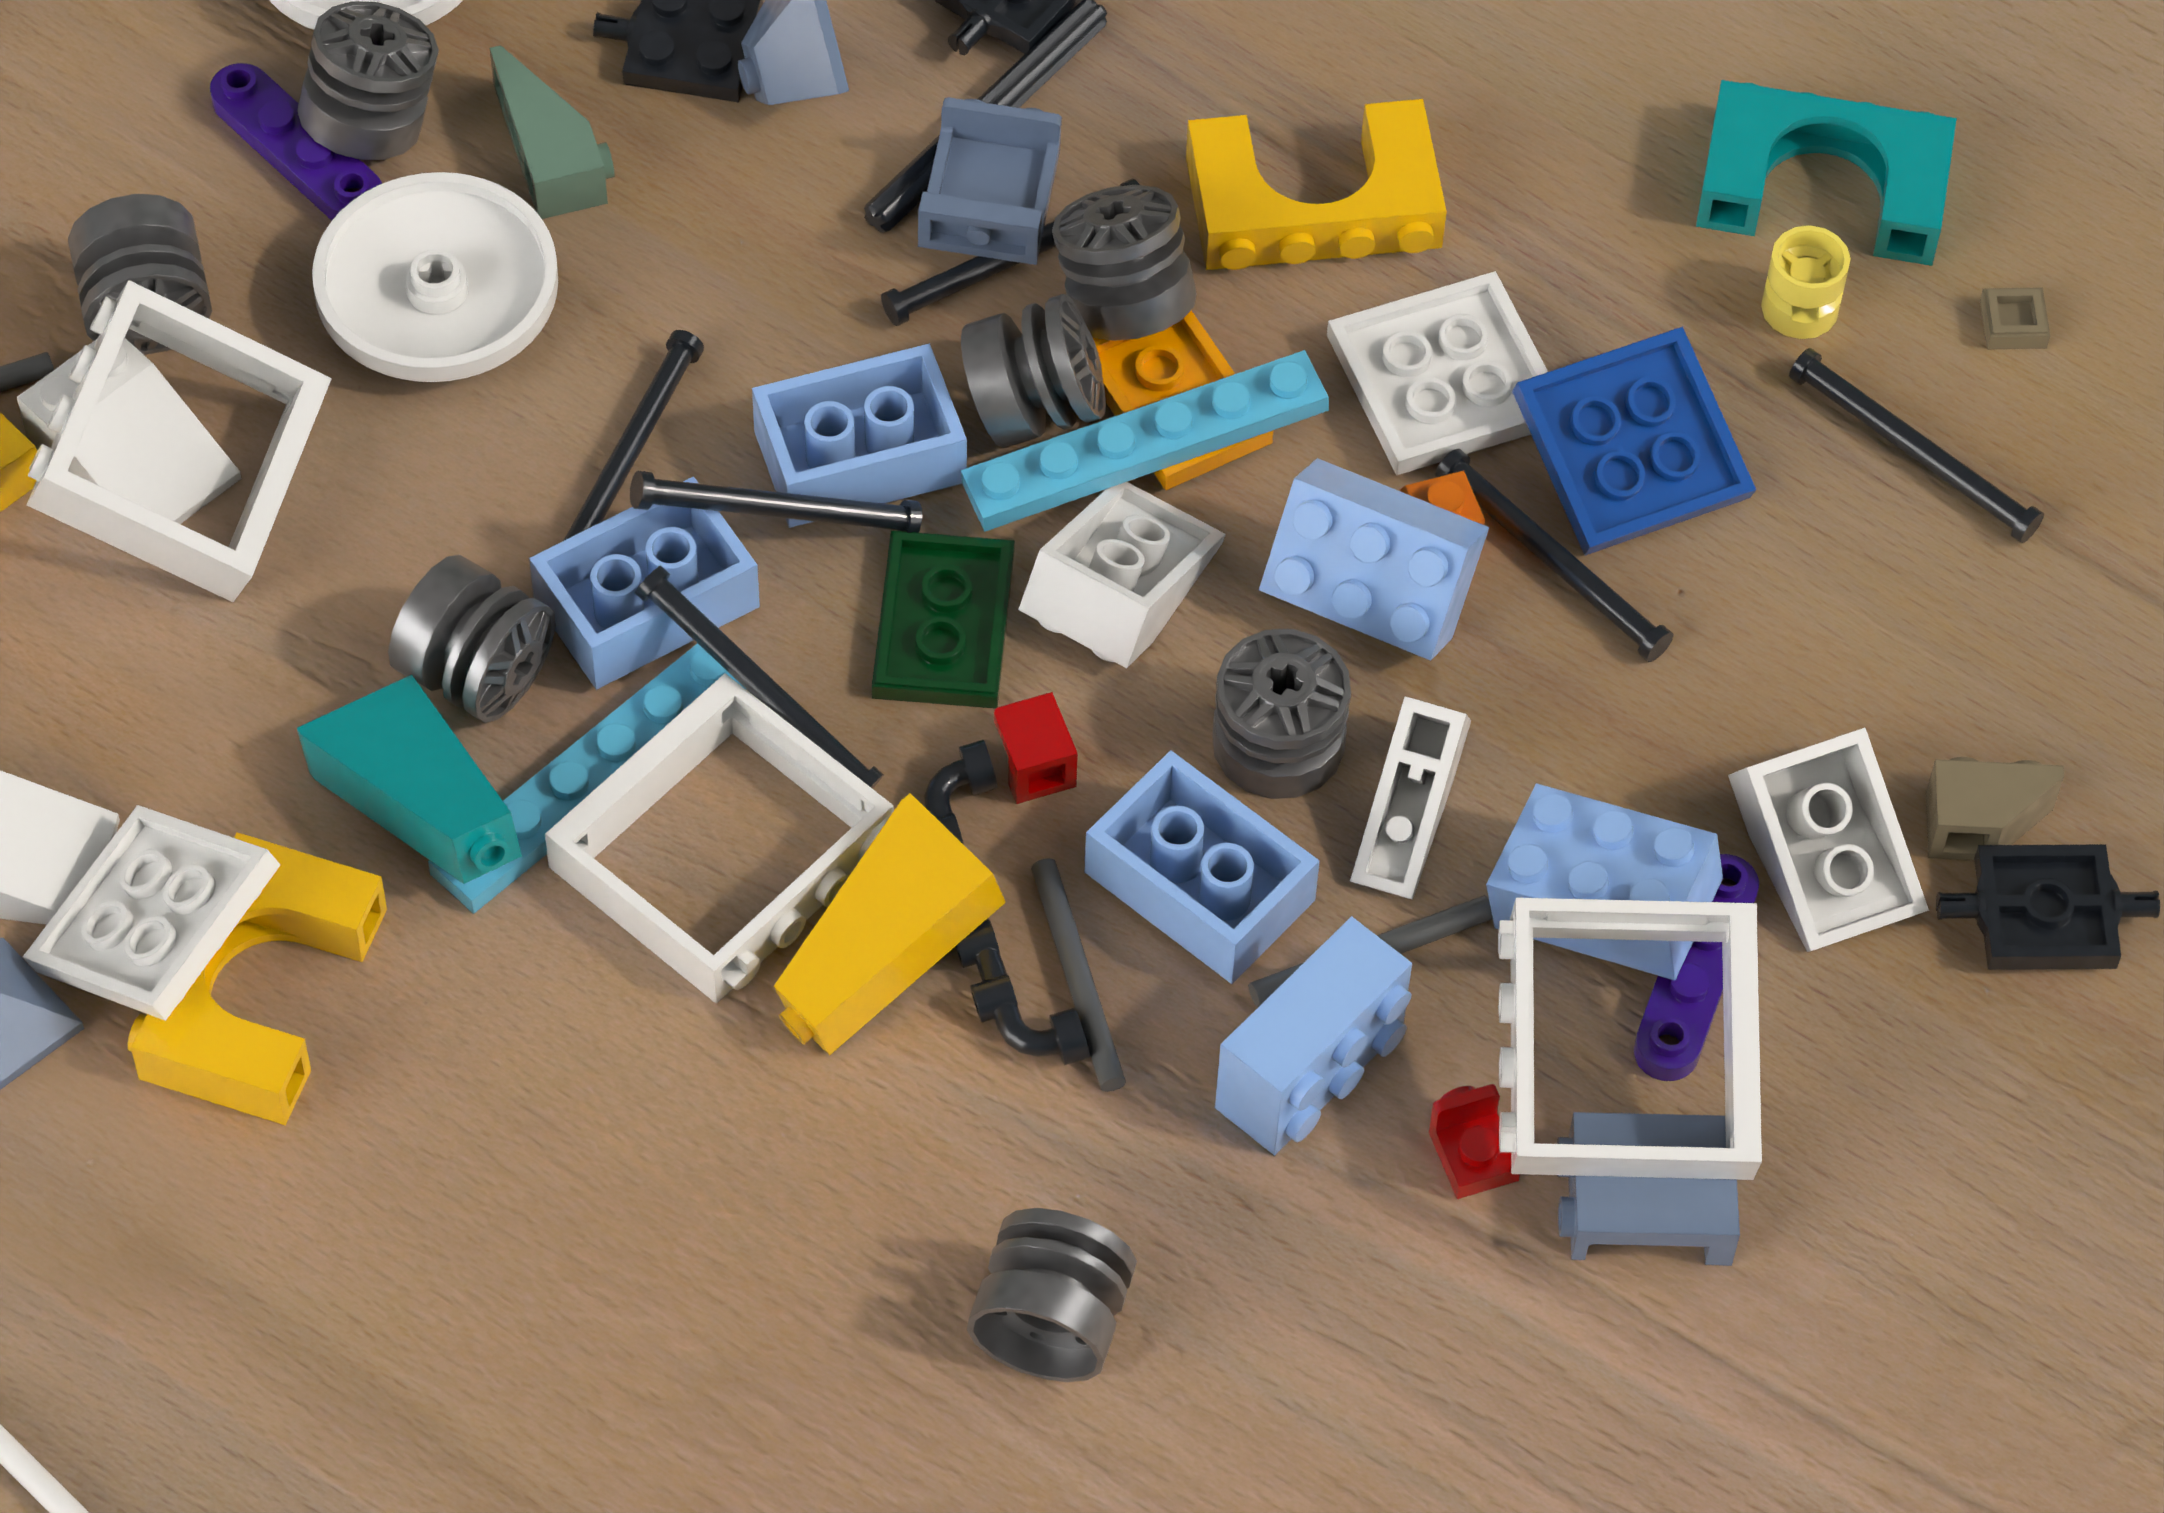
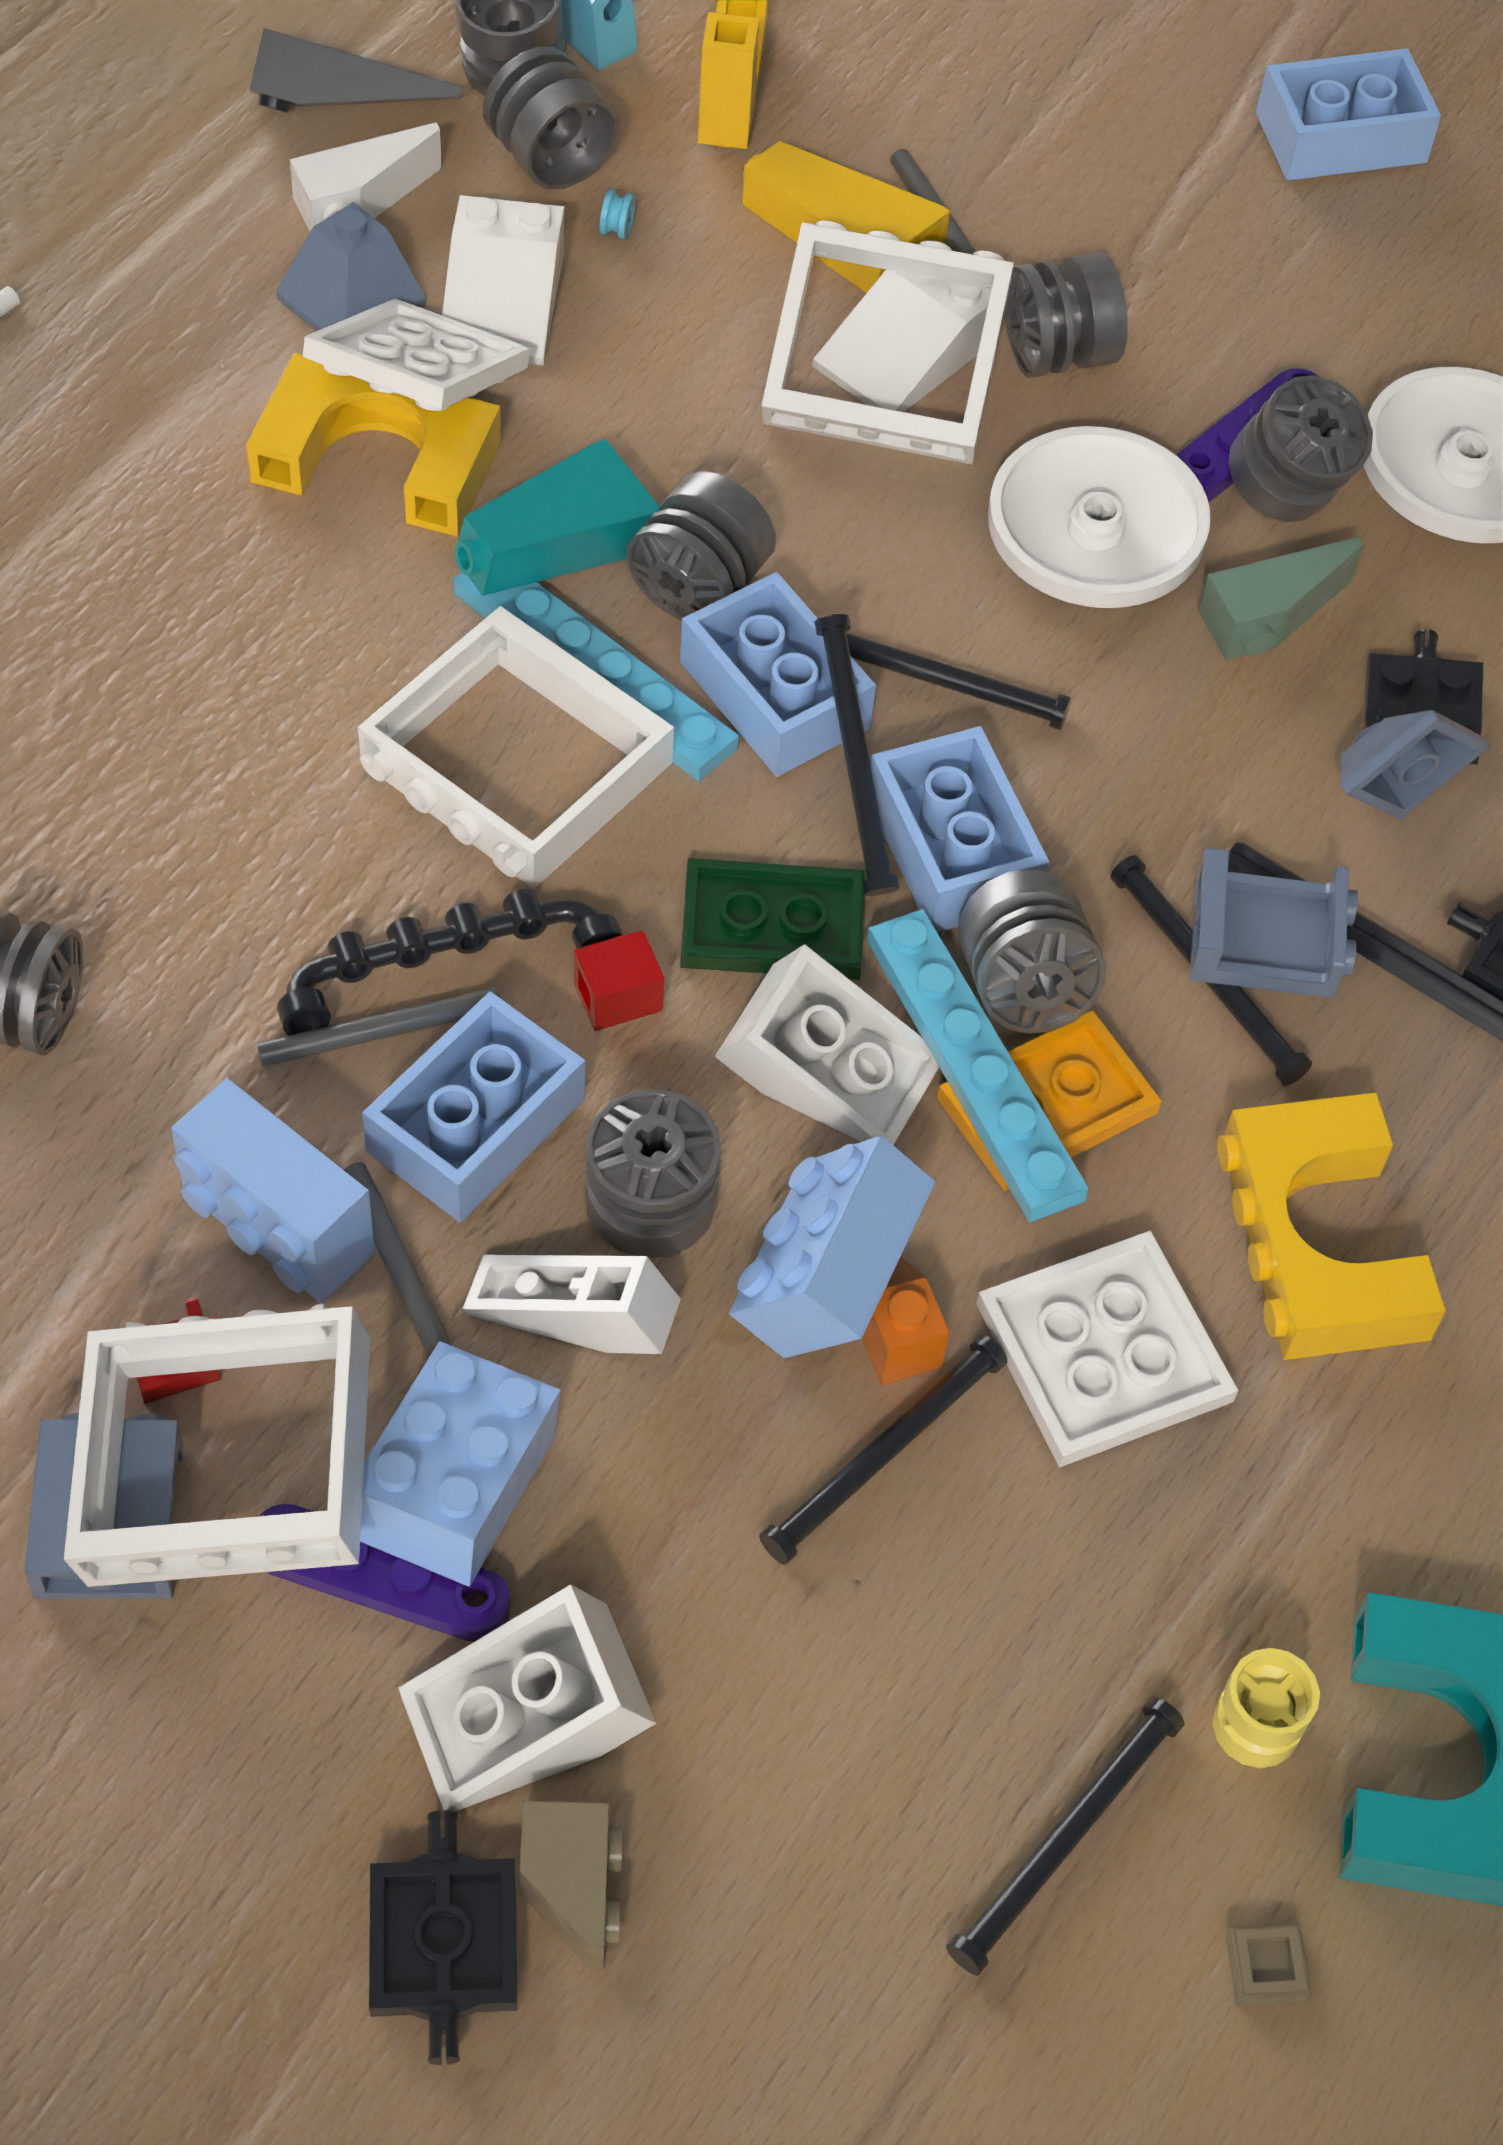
camera: 85 degrees right, 0 degrees up
(746, 670) = (739, 652): black bar -> none
(885, 927) = (412, 857): yellow slope -> none
(1125, 261) = (1177, 1029): flat silver wheel -> none
(1633, 440) = (1025, 1517): blue plate -> none

